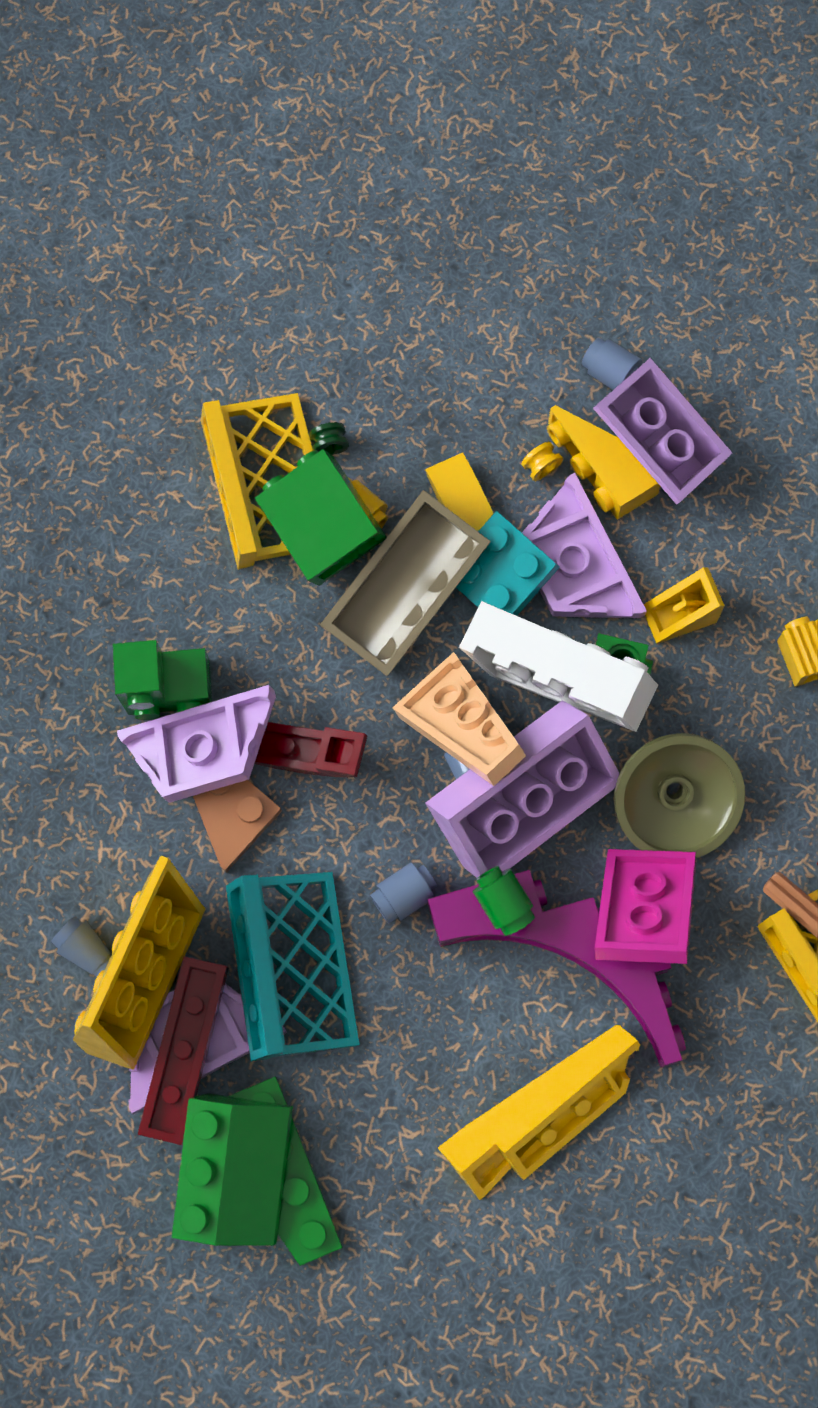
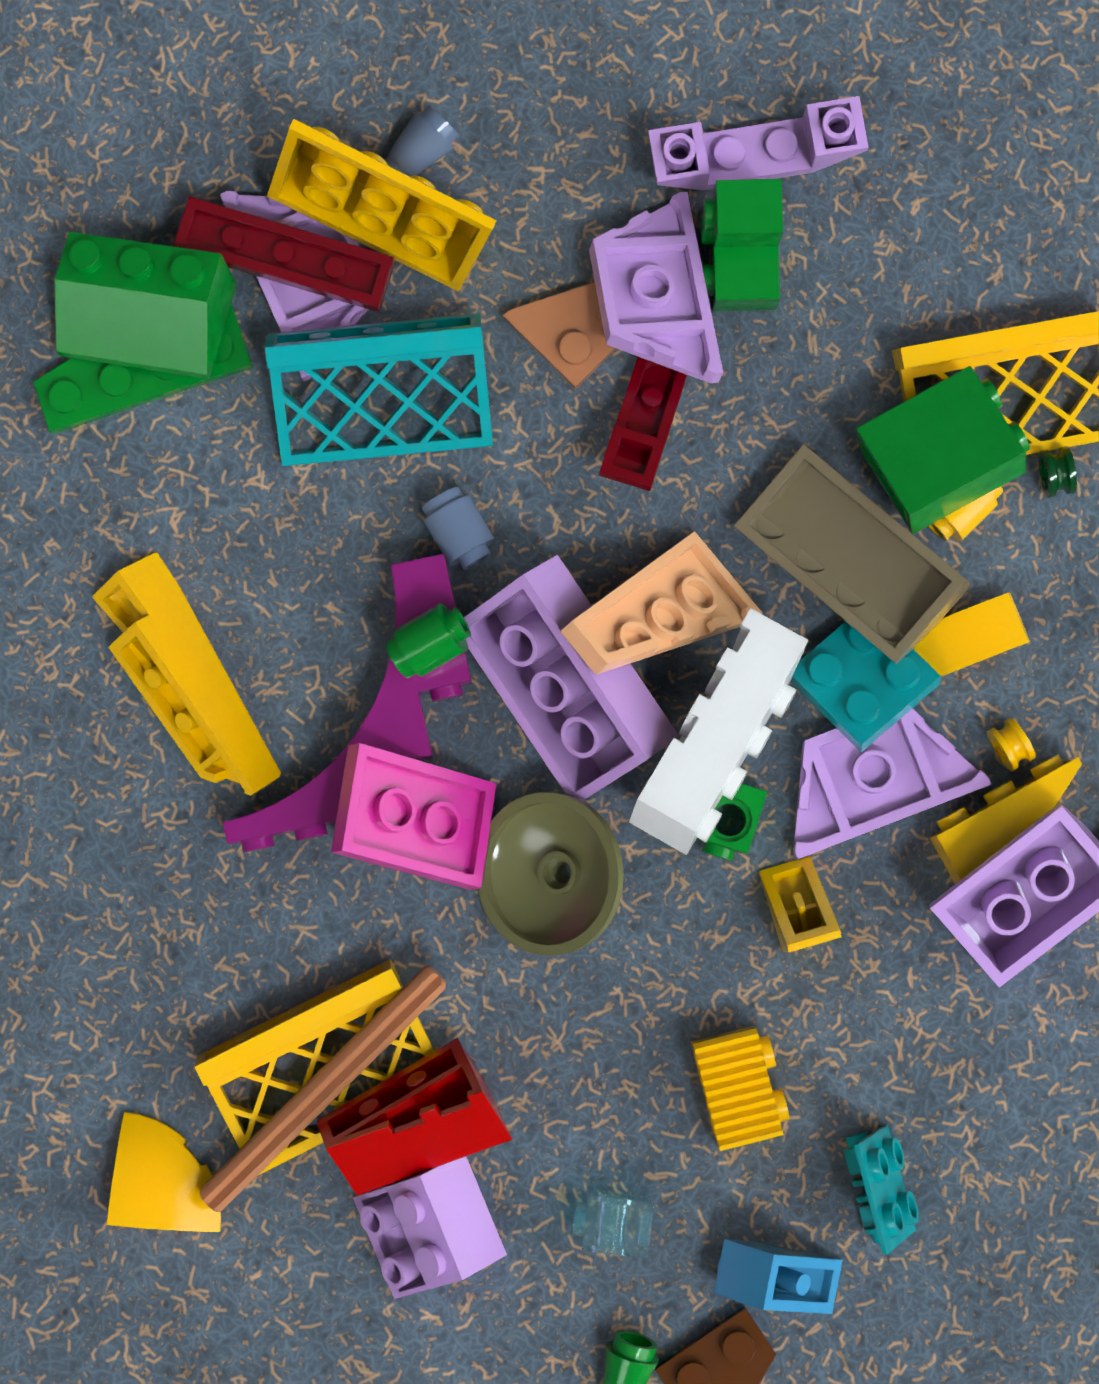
camera: 90 degrees right, 10 degrees up
(81, 671) = (771, 150): none -> lavender slope

